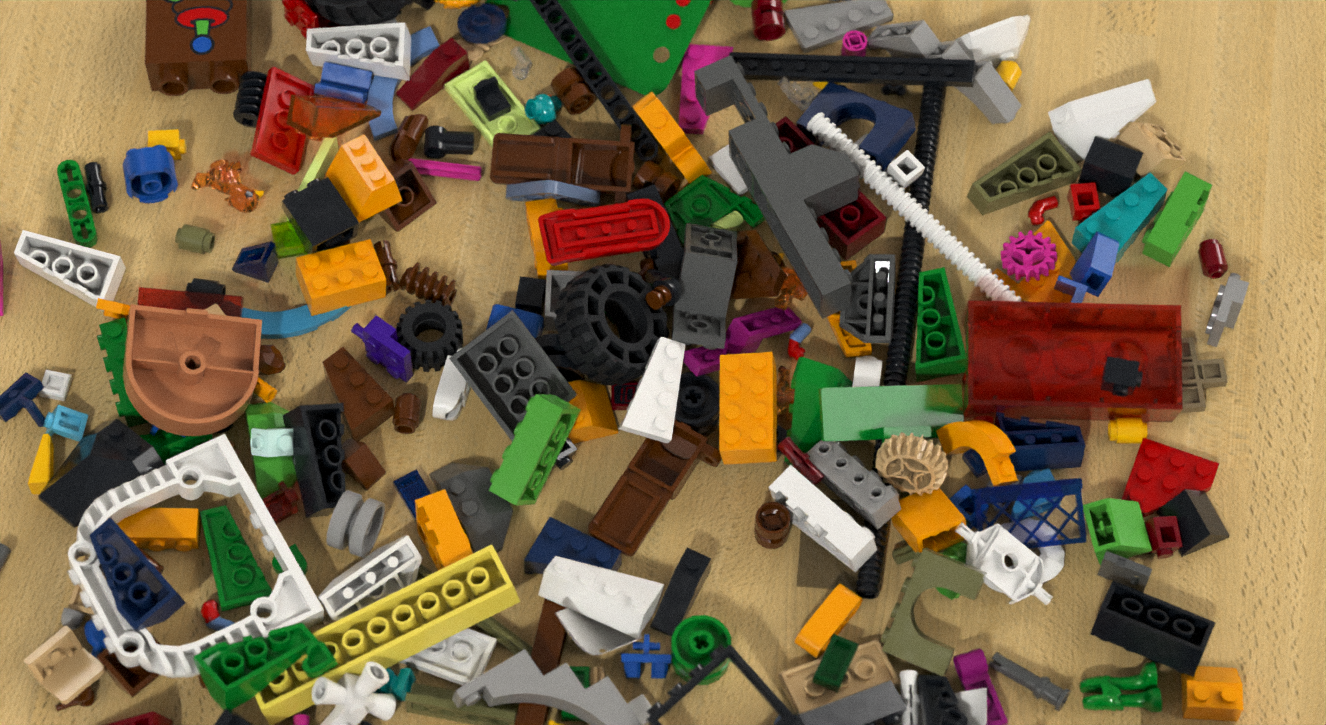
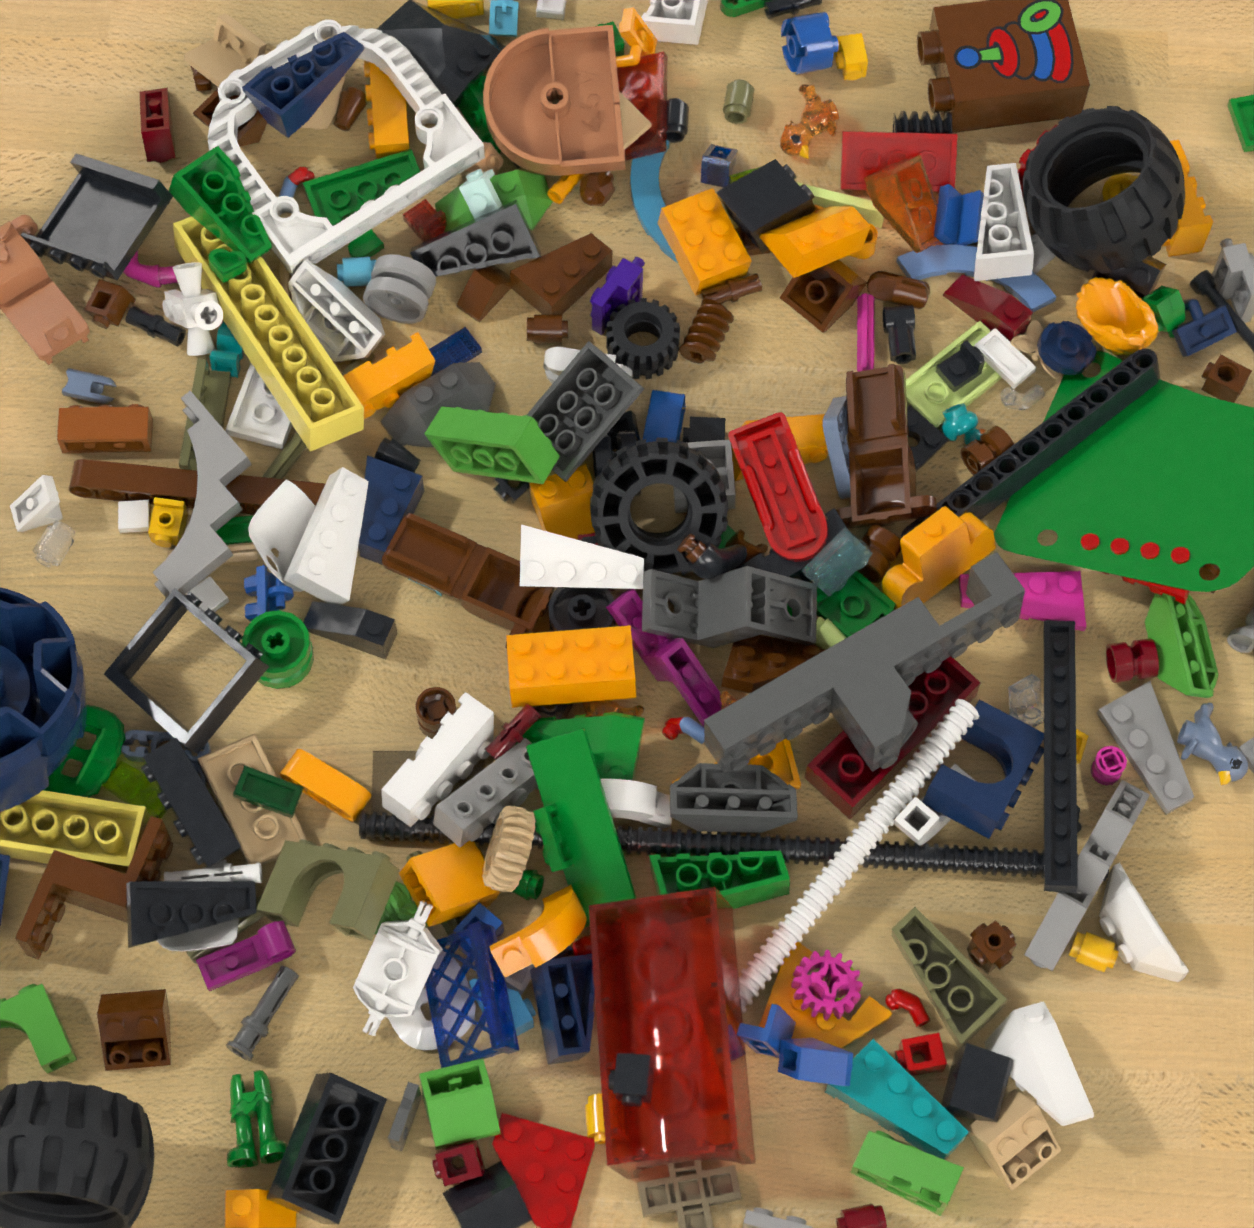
camera: 85 degrees right, 5 degrees up
(322, 565) = (355, 271): none -> medium azure brick
(487, 66) = (1005, 358): none -> white tile
(517, 546) = (395, 454): none -> black cone
(674, 199) = (837, 562): none -> clear light blue bracket
(999, 144) = (990, 956): none -> reddish brown brick

